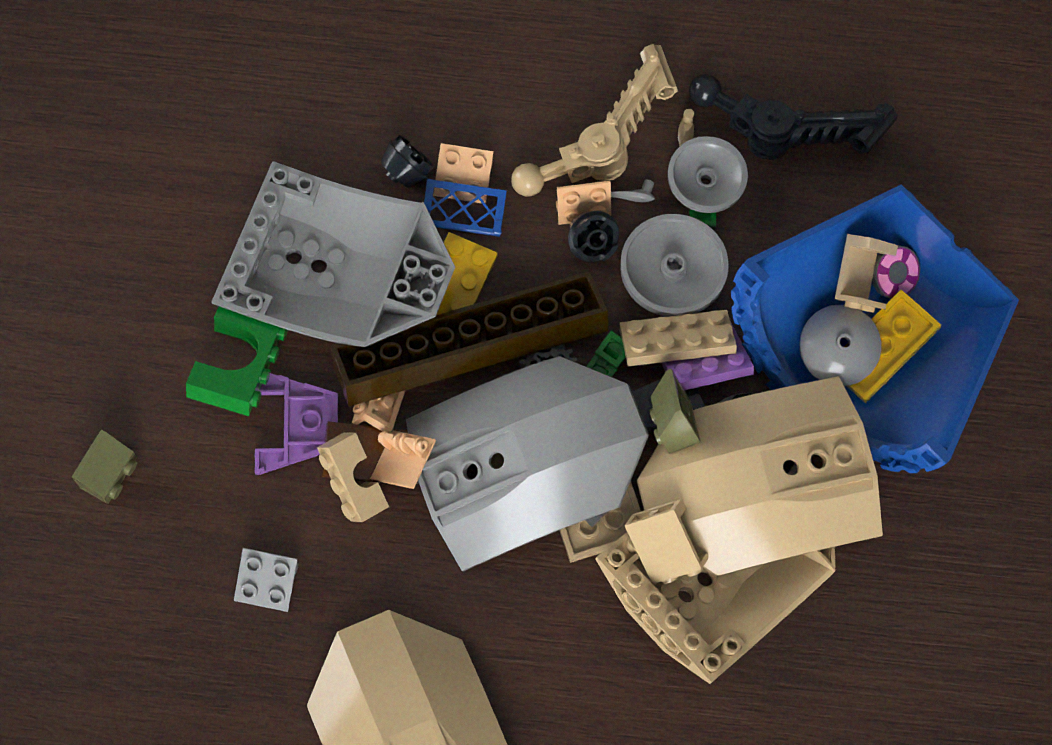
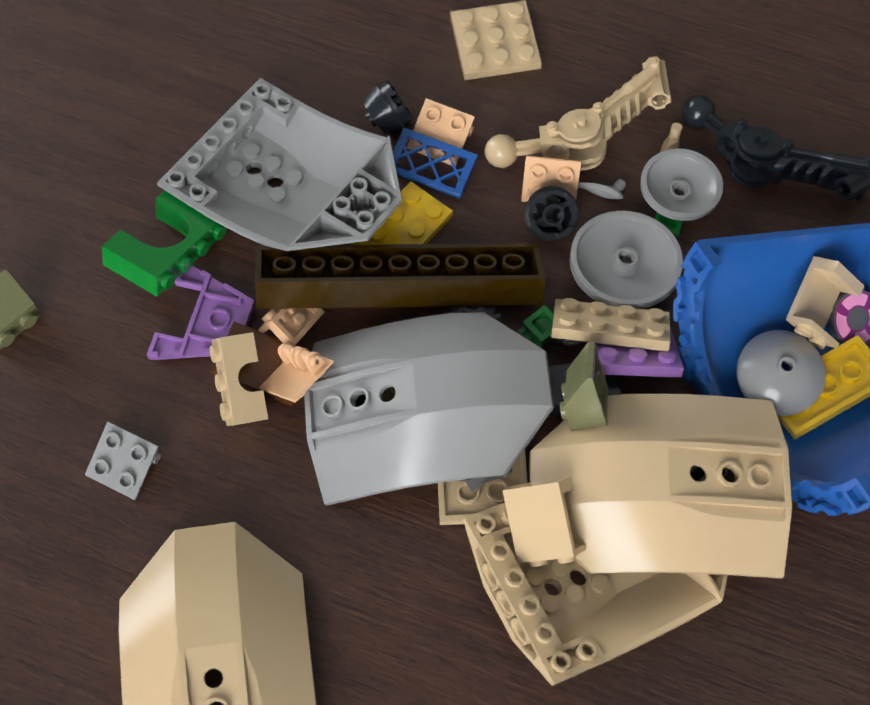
camera: 20 degrees right, 10 degrees down
(487, 56) = (495, 40): none -> tan plate

